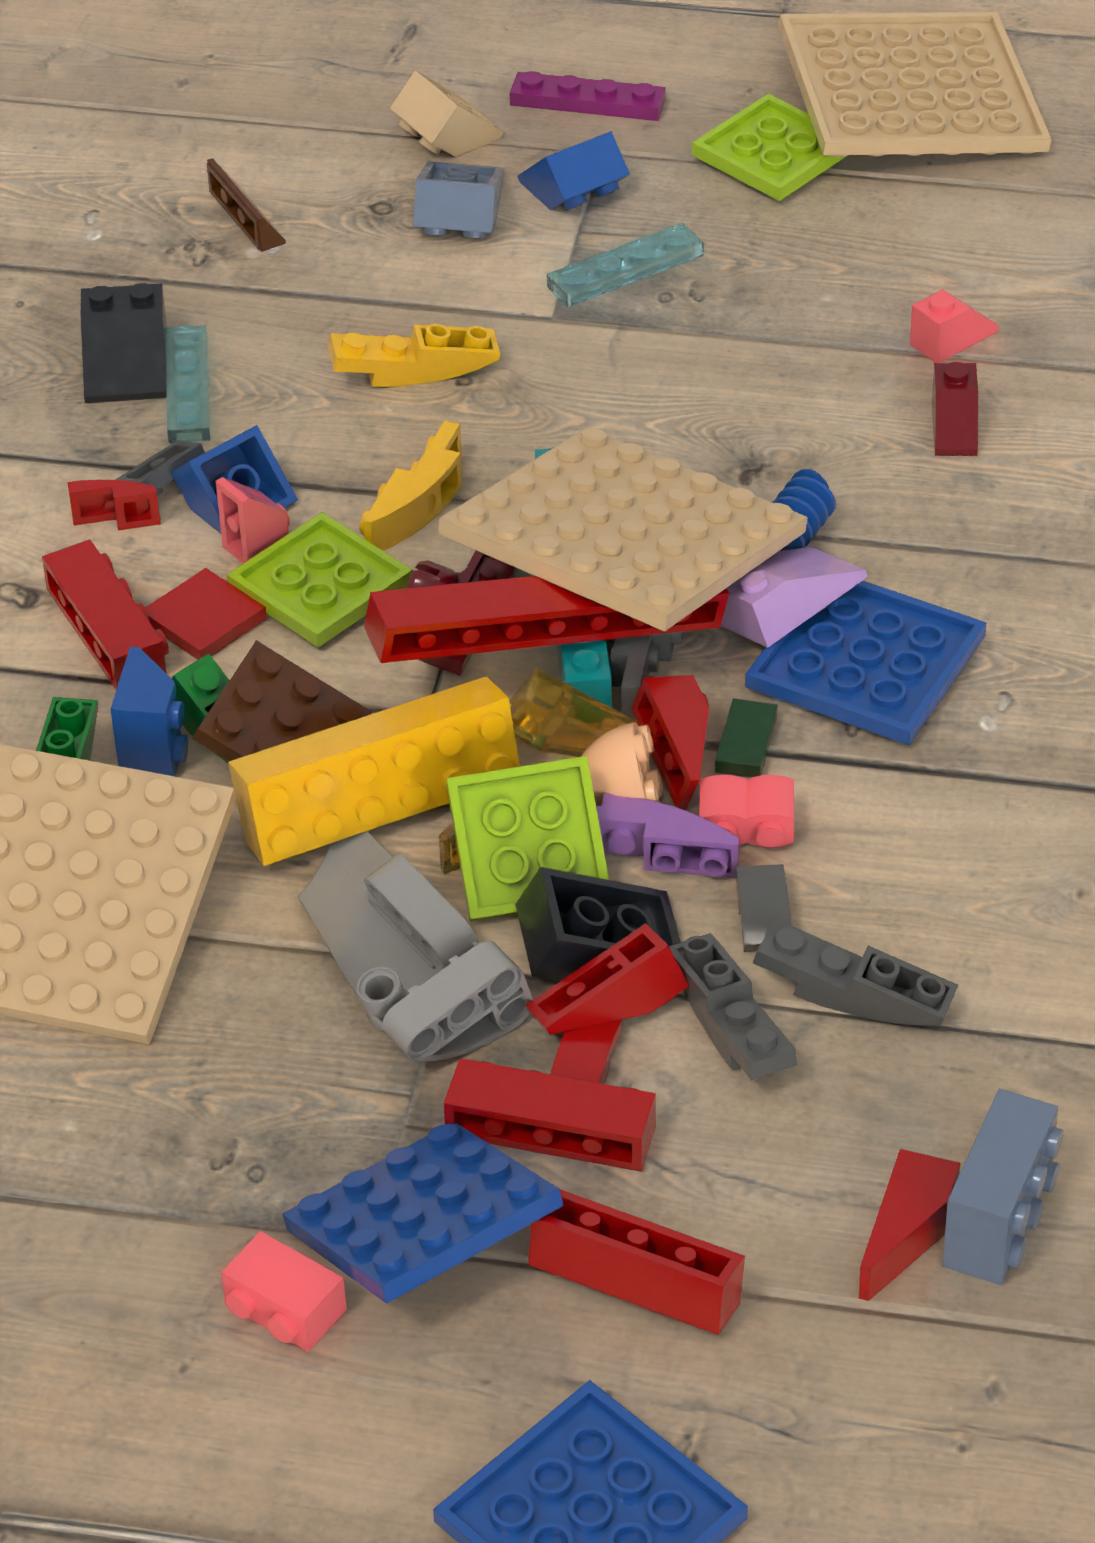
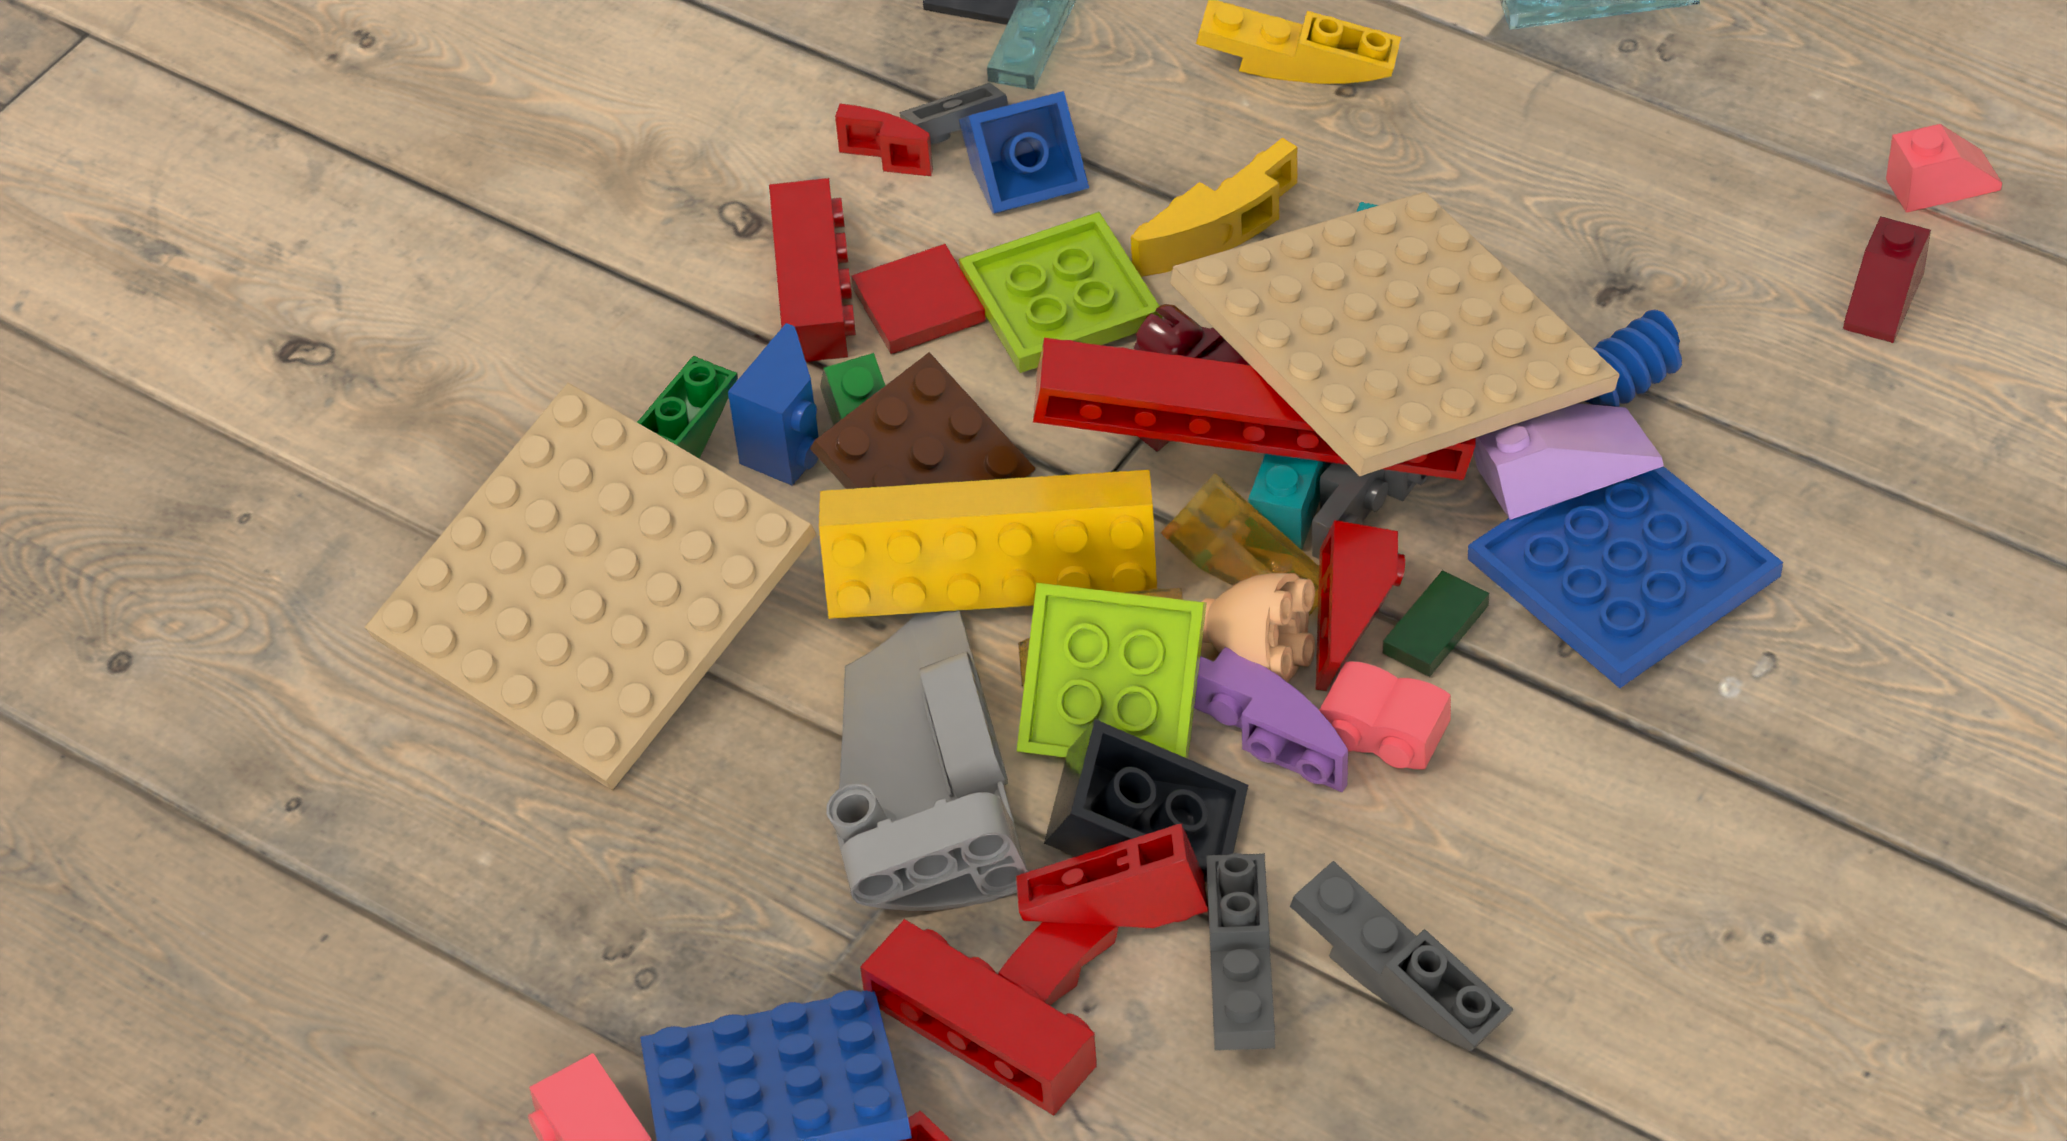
camera: 25 degrees right, 5 degrees up
(248, 519) = (1013, 198): coral slope -> none
(760, 899) = (1347, 831): dark grey slope -> none

